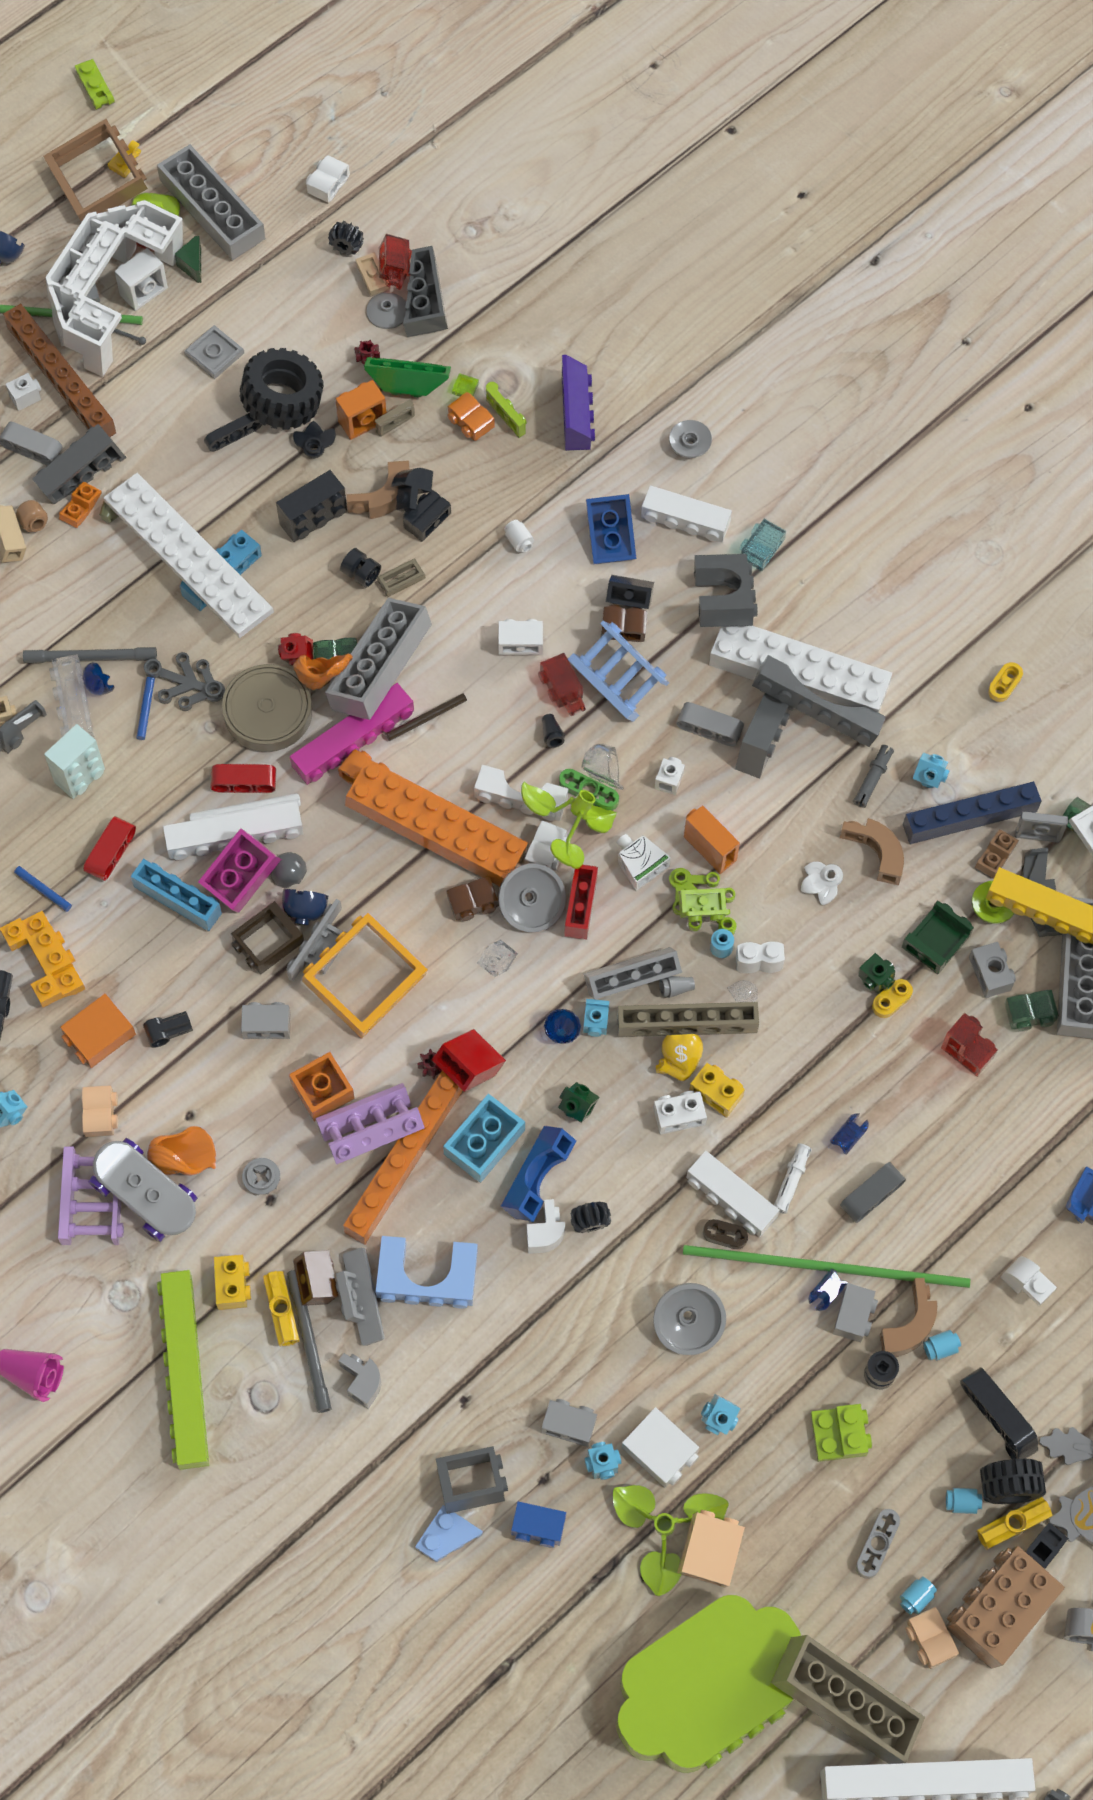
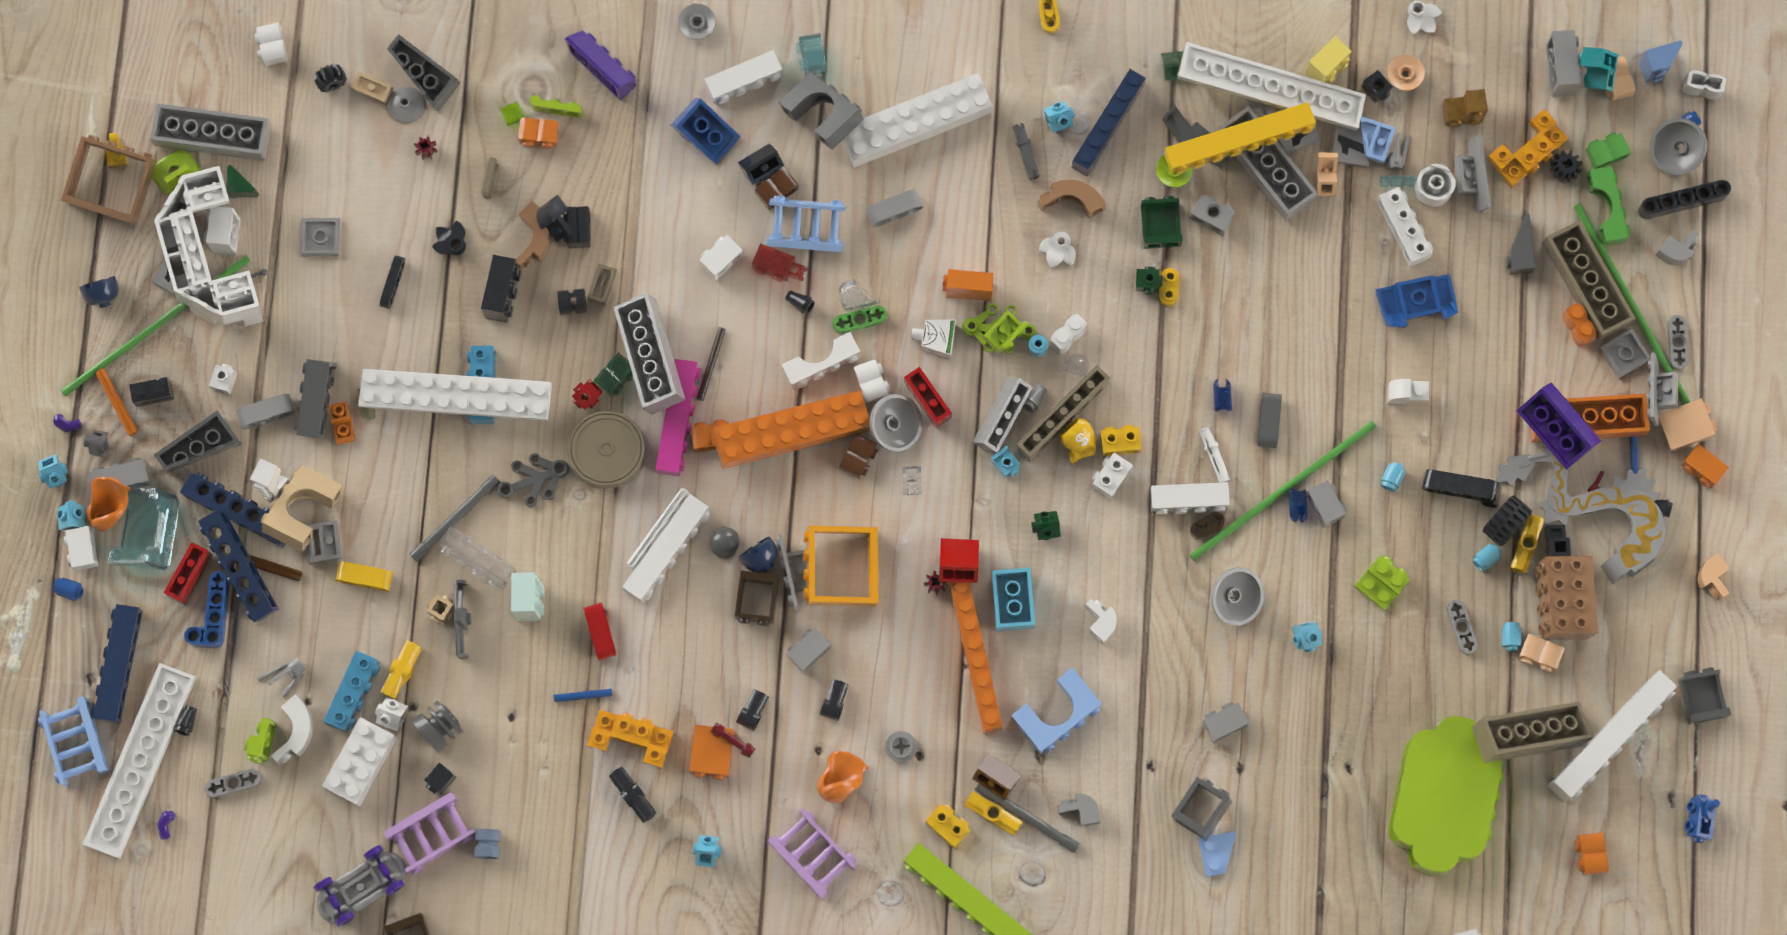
camera: 40 degrees left, 10 degrees up
(31, 516) = (320, 460): medium nougat head -> none
(57, 370) = (233, 344): dark orange brick -> none
(94, 84) = (34, 114): lime plate -> none
(95, 680) = (478, 531): clear blue hair -> none
(99, 1111) = (763, 799): light nougat brick -> none
(125, 1053) = (746, 749): none -> dark red bar
(143, 1188) = (844, 820): light grey piece -> none
(145, 708) = (527, 521): blue bar -> none
(176, 894) = (674, 622): dark azure brick -> none
(239, 870) = (700, 571): dark pink brick -> none
(239, 1086) = (833, 704): none -> black piece
(243, 778) = (637, 509): red beam -> none
(286, 369) = (393, 205): black tyre -> none
(320, 671) = (623, 395): orange piece -> none
(322, 1086) = (884, 658): orange brick -> none
(359, 1296) = (1032, 763): light grey bracket -> none
(360, 409) = (464, 192): orange brick -> none
(365, 1112) = (924, 651): lavender fence -> none
(394, 260) = (380, 66): clear red brick -> none
(406, 376) = (470, 139): green wedge -> none
(519, 536) = (652, 188): white brick -> none
(538, 1524) = (1265, 796): blue brick -> none
(549, 1149) = (1057, 570): blue arch -> none
(562, 1026) = (992, 487): clear blue hair -> none
(581, 806) = (877, 336): lime plant -> none
(590, 1217) = (1122, 589): black gear -> none
(600, 1469) = (1265, 733): medium azure brick -> none
(635, 1504) = (1307, 733): lime plant -> none
(661, 1448) = (1291, 687): white brick -> none
(667, 781) = (901, 271): white brick -> none
(711, 1548) = (1374, 718): light nougat brick -> none
(762, 735) = (932, 180): dark grey wedge -> none
(856, 722) = (917, 143): dark grey arch -> none
(881, 1370) = (1373, 524): black wheel -> none
(909, 1337) = (1370, 479): medium nougat arch -> none
(967, 1046) = (1243, 276): clear red brick -> none
(996, 853) = (1146, 135): medium nougat slope -> none
(1031, 1010) = (1258, 219): clear green brick -> none
(1041, 827) = (1160, 95): light grey tile -> none

